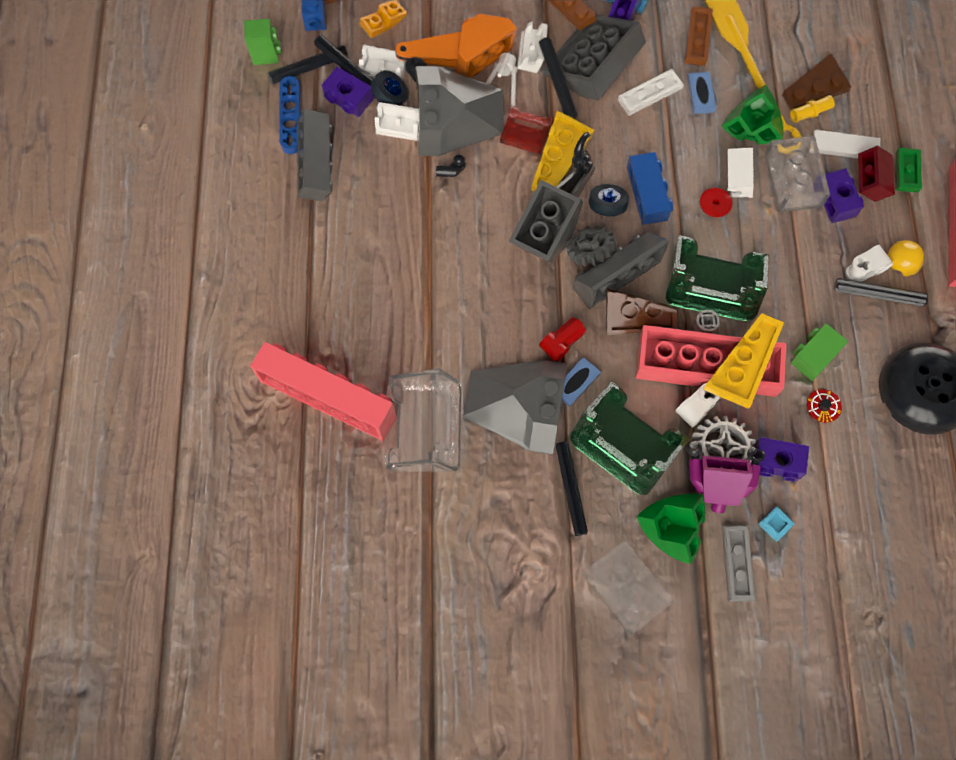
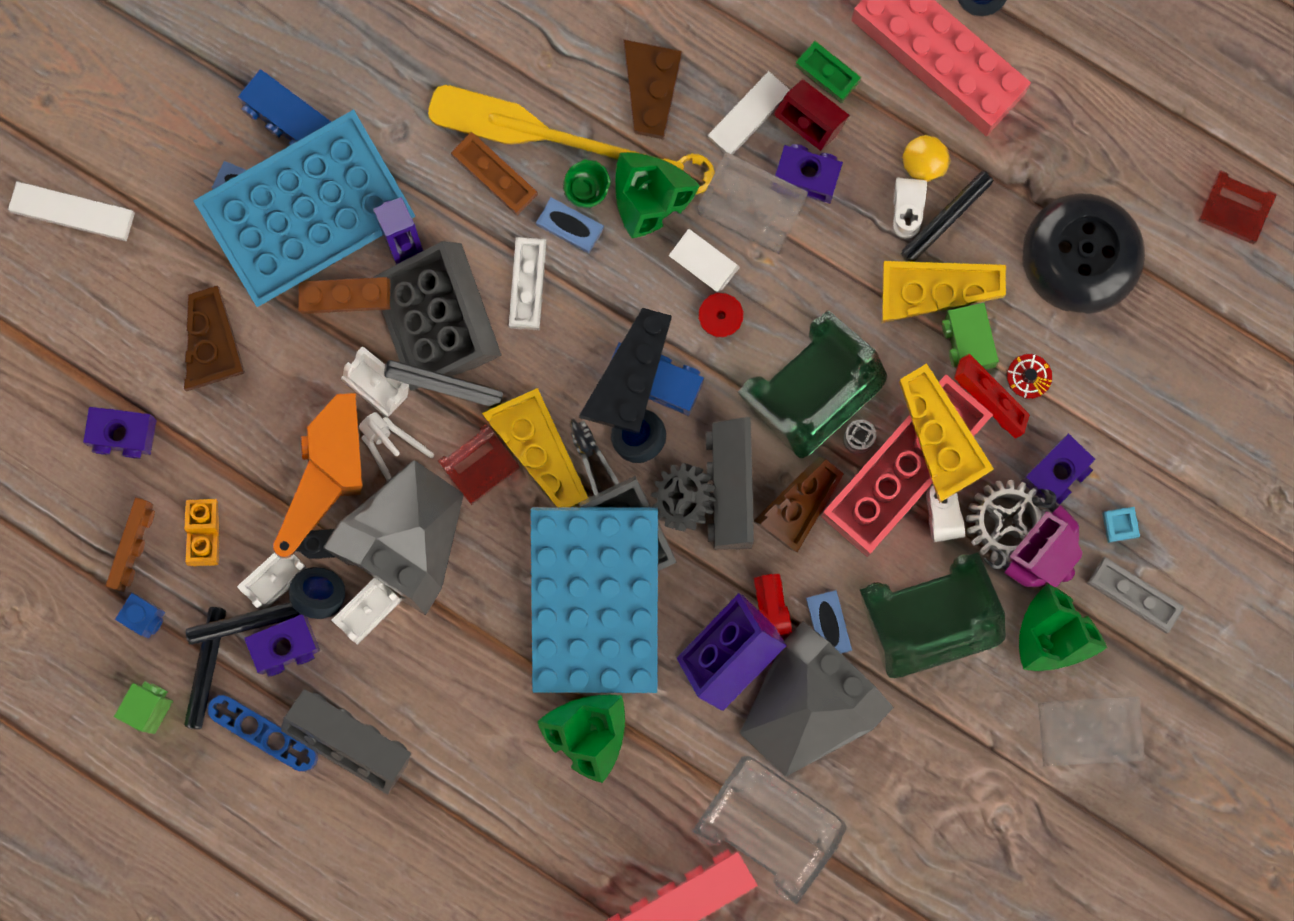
camera: 55 degrees left, 10 degrees up
(409, 282) = (587, 733): none -> green brick
(454, 169) = (472, 583): black arm -> none
(492, 230) = (594, 600): none -> dark azure plate
(515, 330) = (730, 652): none -> dark purple slope
(571, 488) = (944, 713): black axle -> none
(637, 168) = (627, 382): none -> black wing
(733, 82) = (586, 184): none -> green hair
(794, 383) = (992, 396): none -> red plate
(812, 109) = (679, 117): yellow pin -> none
(828, 305) = (931, 287): none -> yellow wing

